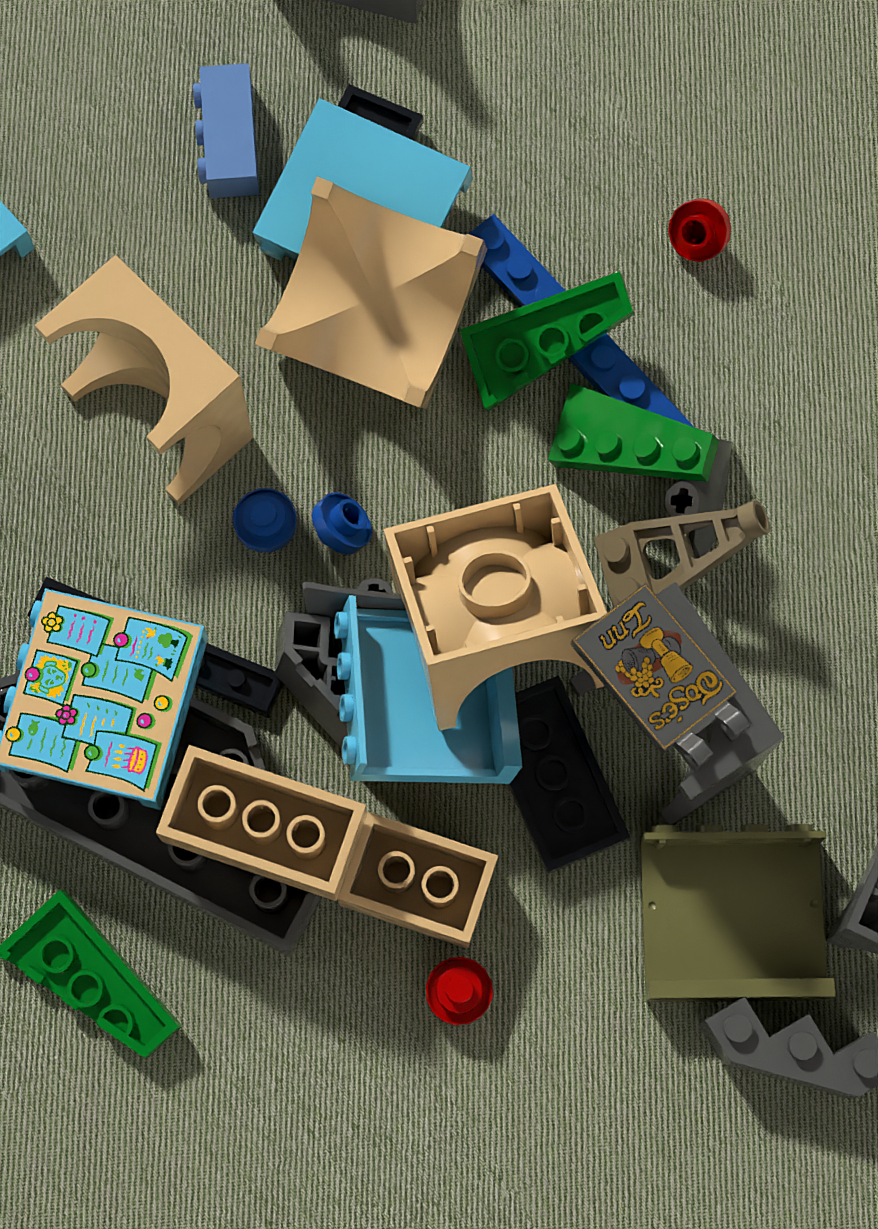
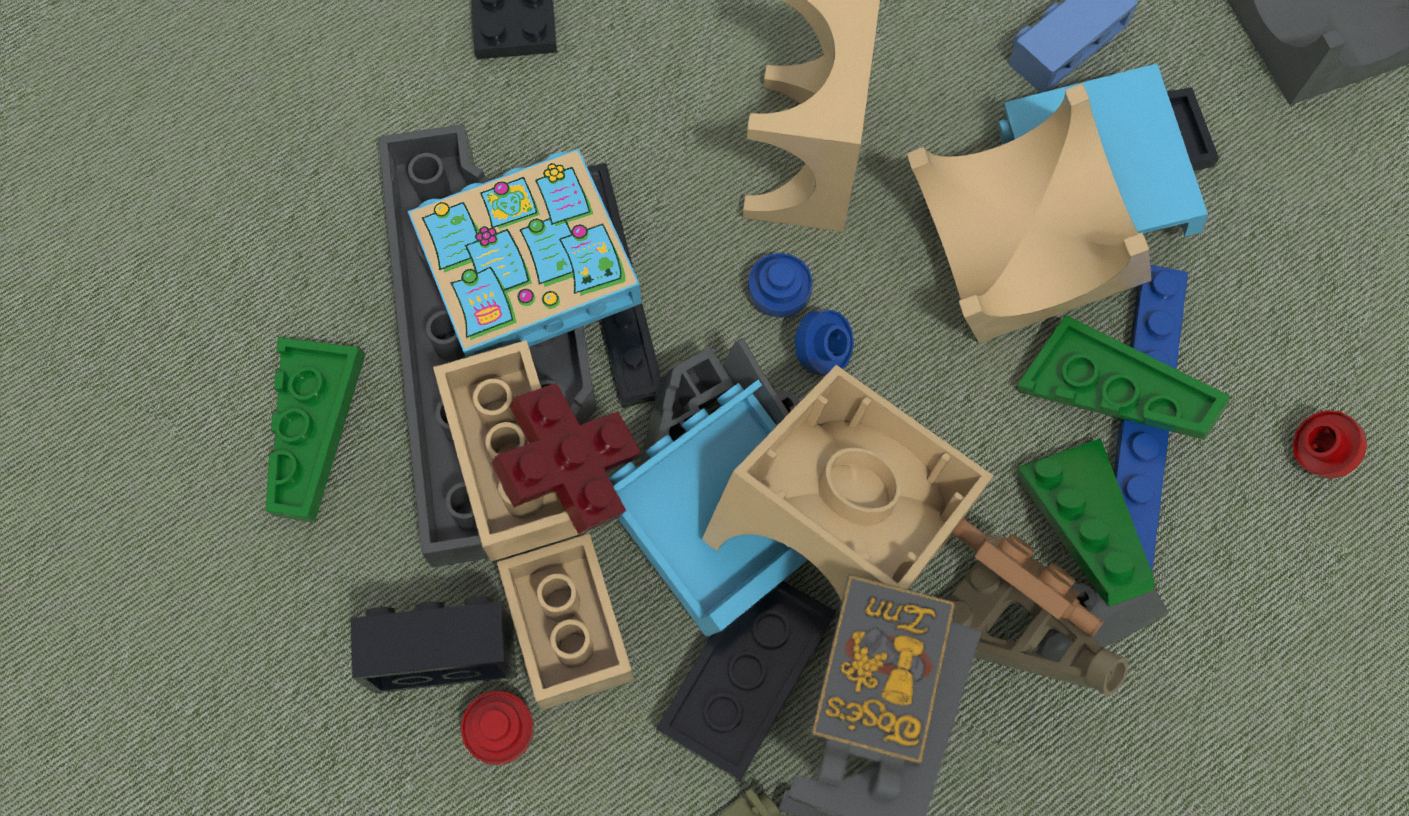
camera: 55 degrees right, 5 degrees down
(313, 781) = (566, 458): none -> dark red plate
(365, 991) = (433, 645): none -> black brick
(658, 514) = (1045, 586): none -> medium nougat plate

